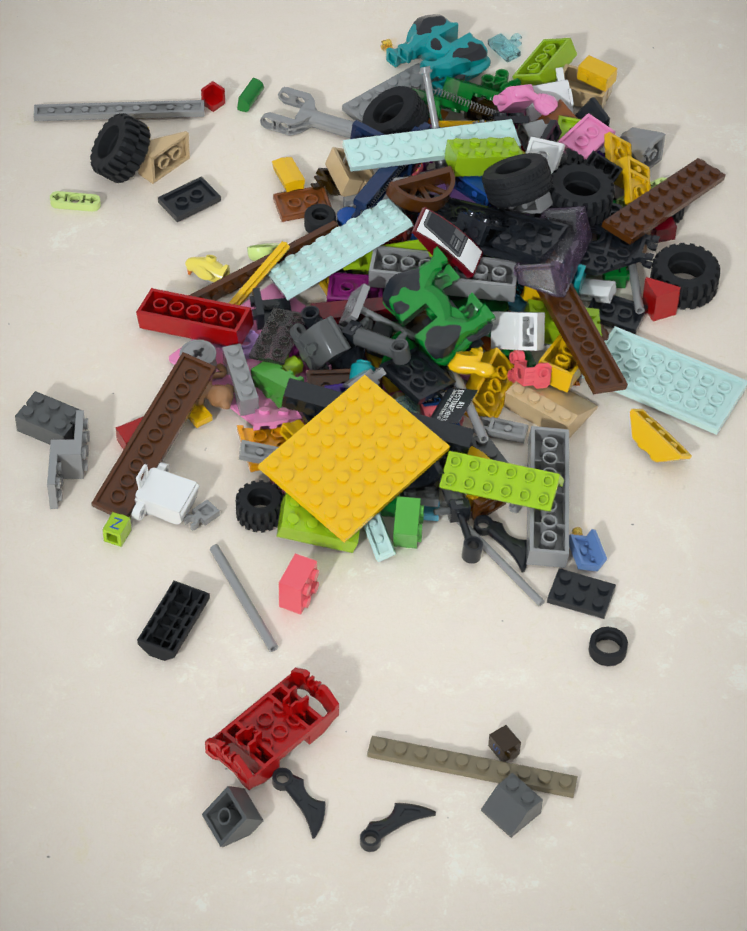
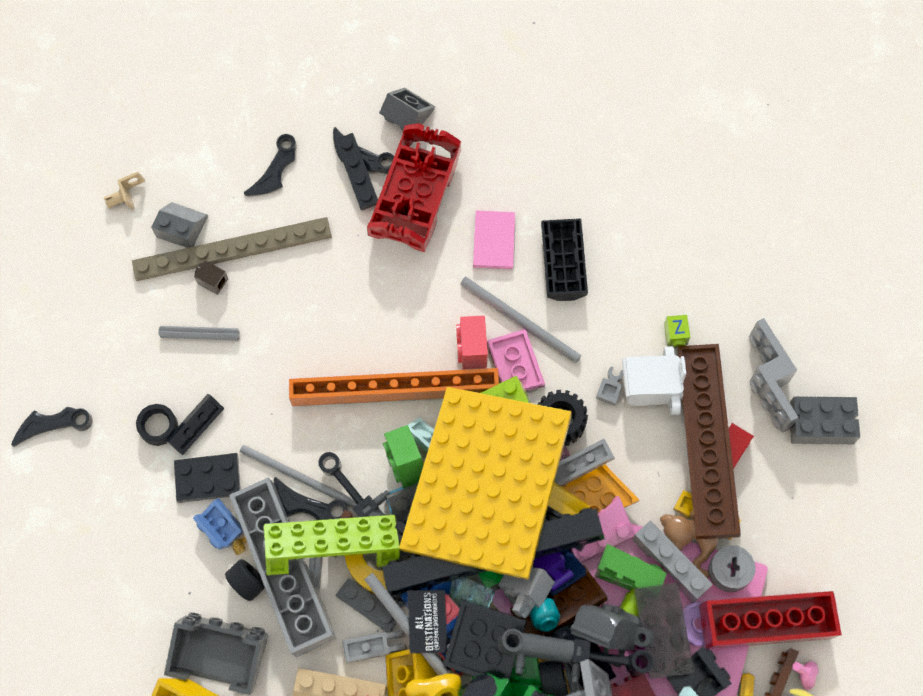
camera: 155 degrees right, 20 degrees up
(189, 288) = (807, 673): none -> bright pink rock
(223, 670) = (494, 240): none -> bright pink tile
(267, 567) = (514, 357): none -> bright pink tile
(315, 780) = (357, 171): none -> black plate
(391, 584) = (388, 386): none -> orange brick
(537, 706) = (199, 332): none -> light grey axle
(556, 857) = (123, 194): none -> tan bracket
(574, 632) = (195, 424): none -> black plate
(582, 503) = (245, 580): none -> black tyre
(619, 473) = (216, 651): none -> dark grey windscreen
(715, 695) = (39, 423): none -> black piece

